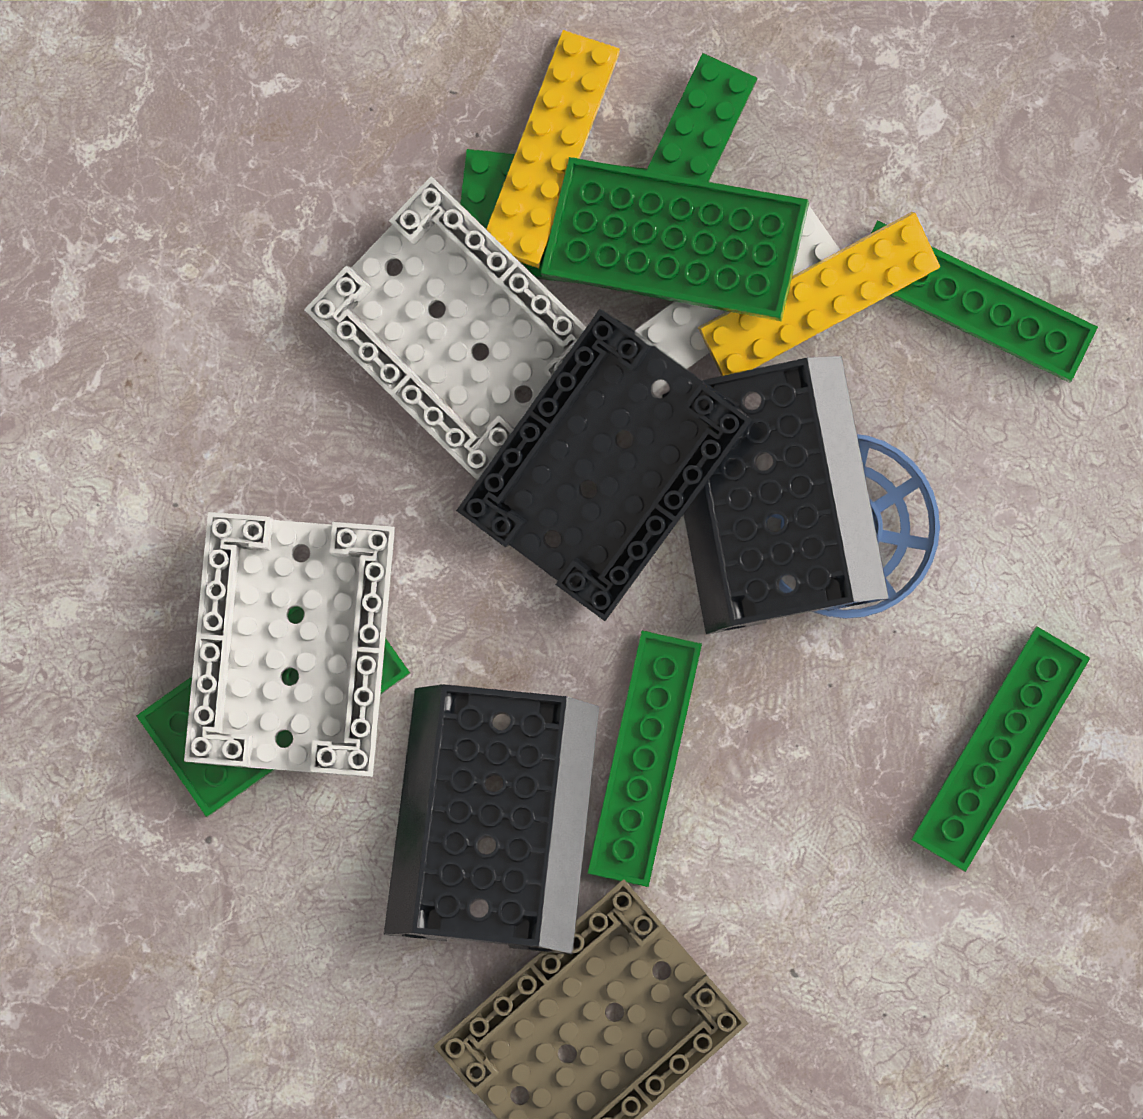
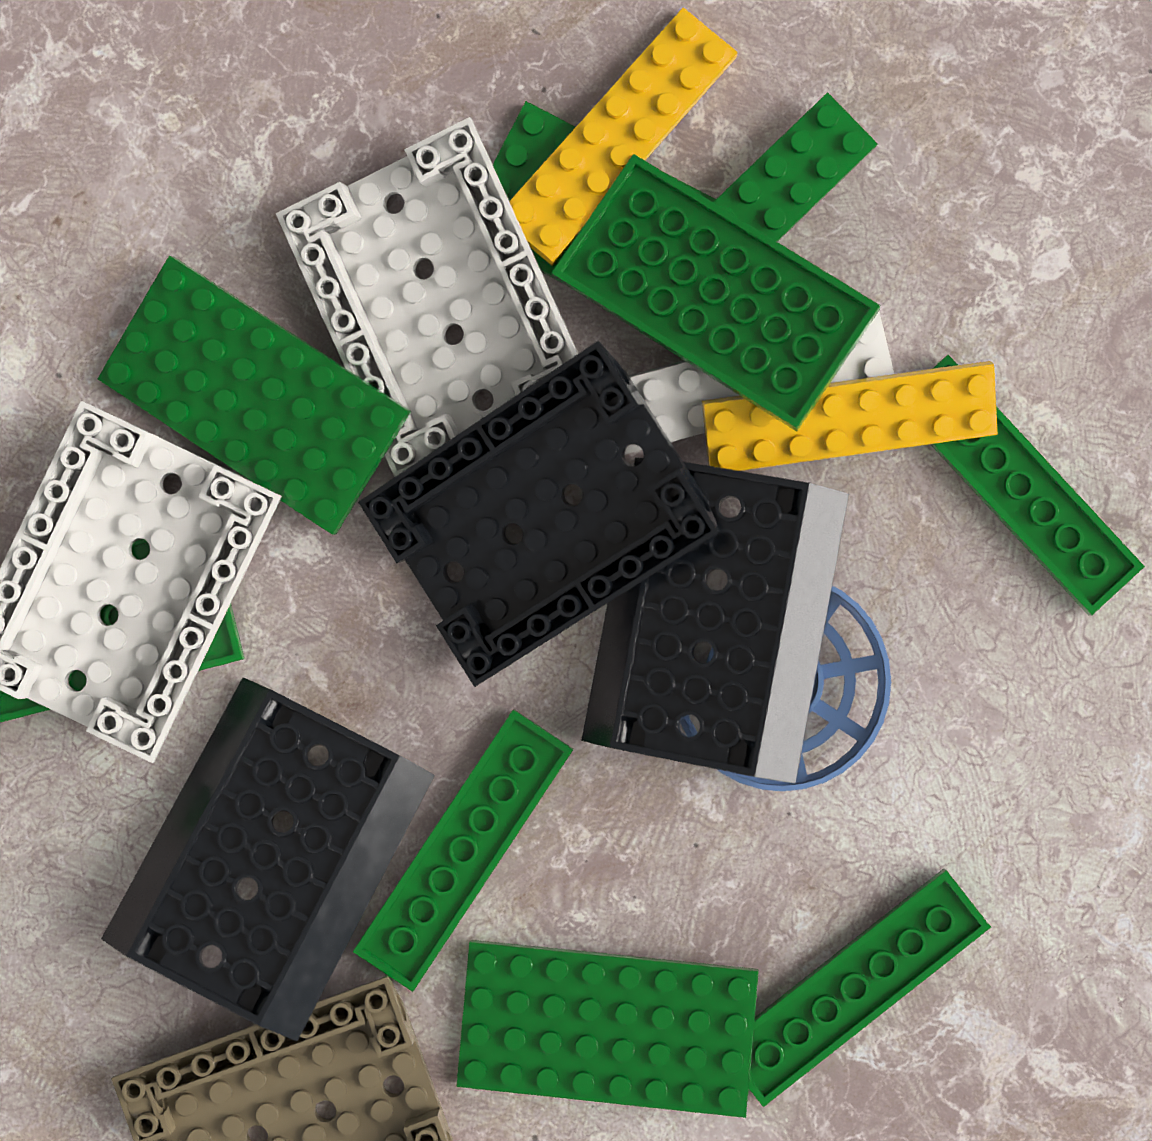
camera: 15 degrees right, 5 degrees up
(340, 458) = (253, 395): none -> green plate
(816, 856) = (607, 1028): none -> green plate

